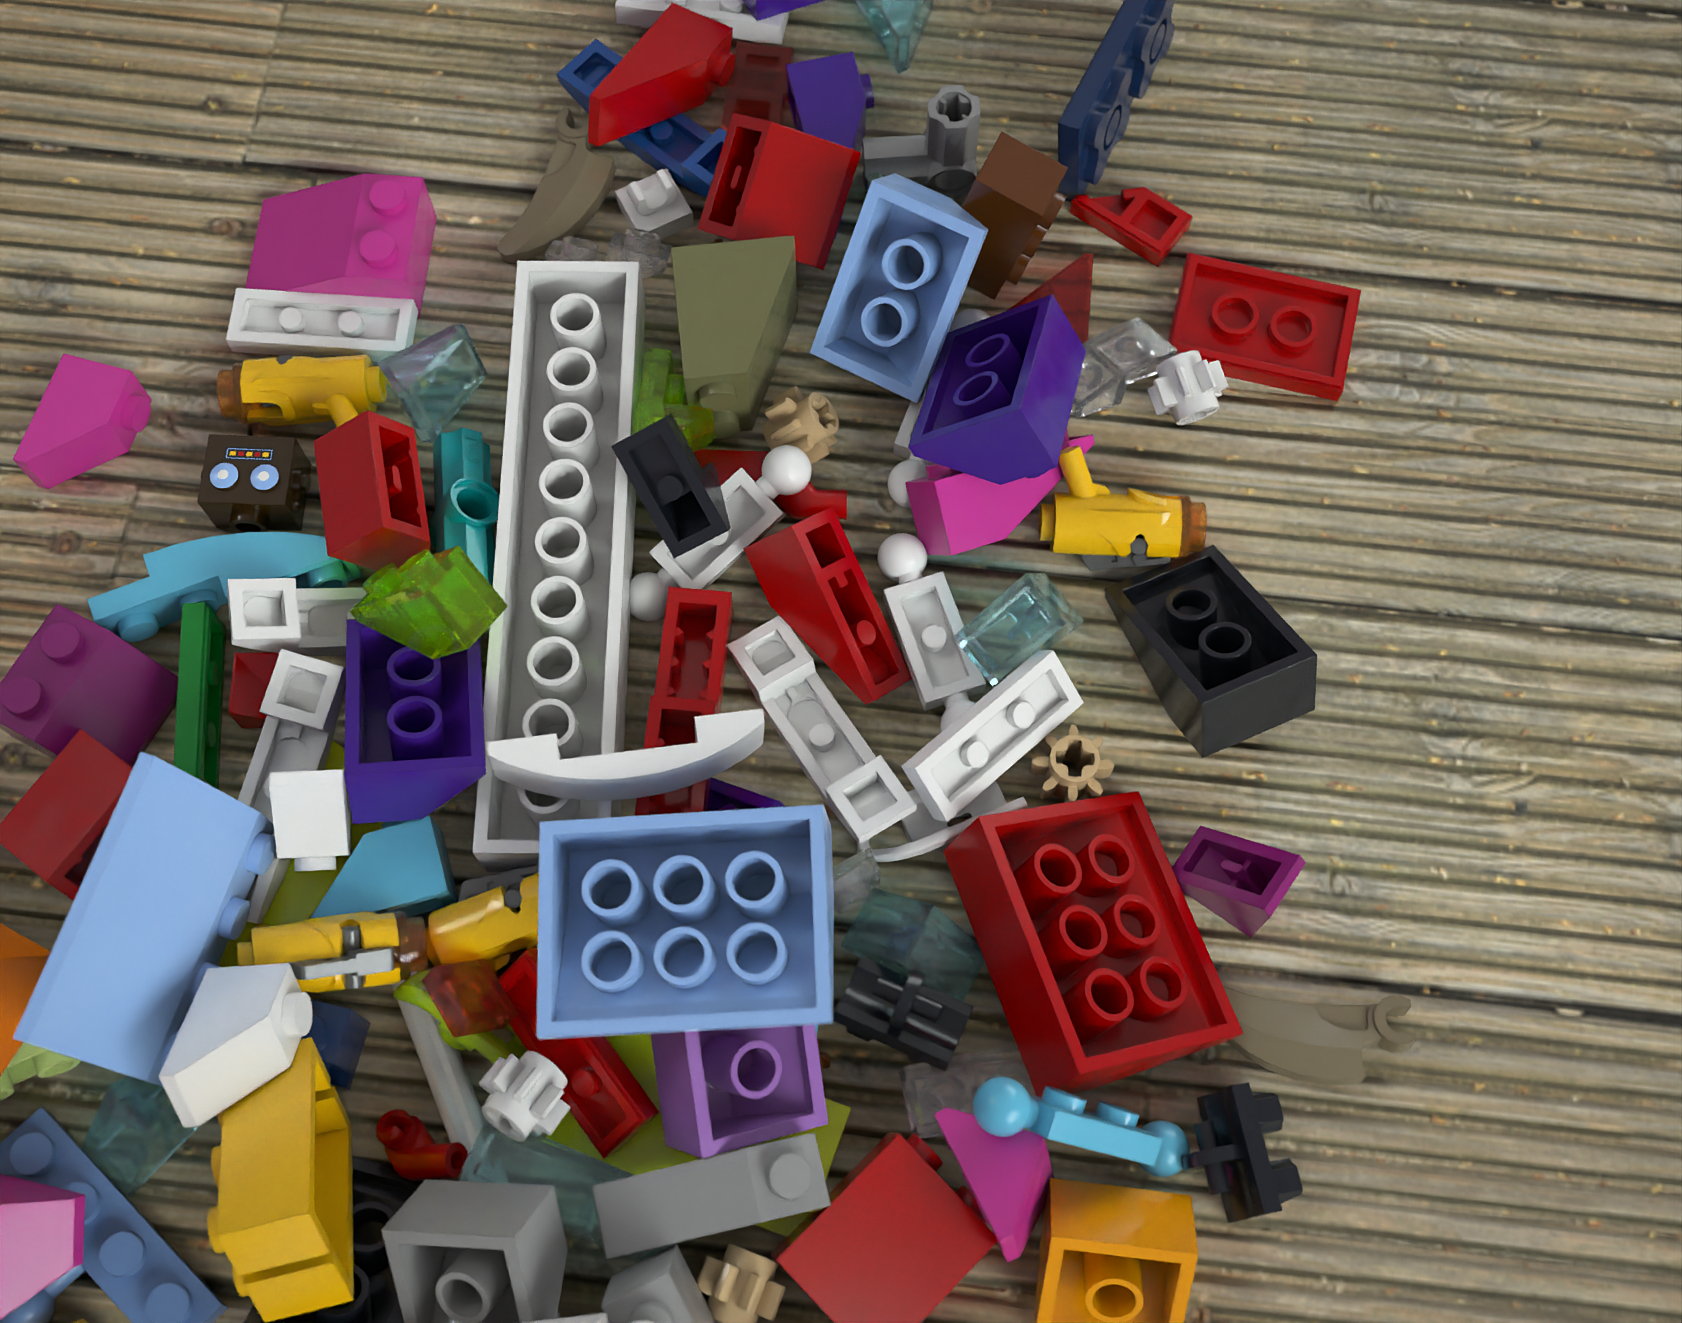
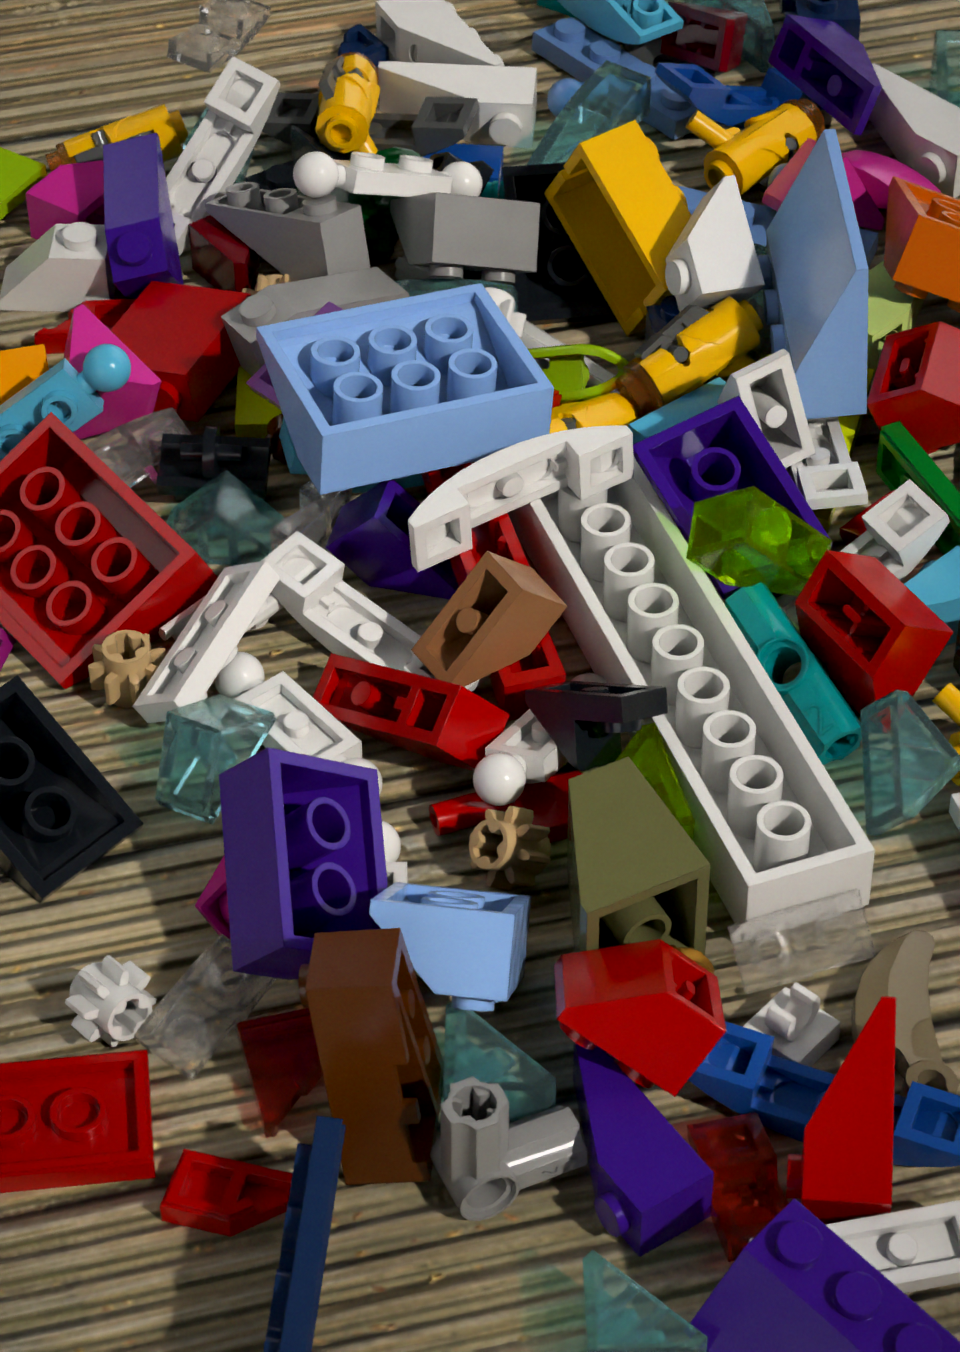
camera: 160 degrees right, 25 degrees down
(415, 1151) = (563, 318): red arm -> none
(469, 997) = (568, 360): clear red tile -> none
(720, 629) = (489, 621): none -> medium nougat slope
(1118, 527) = (139, 866): yellow piece -> none

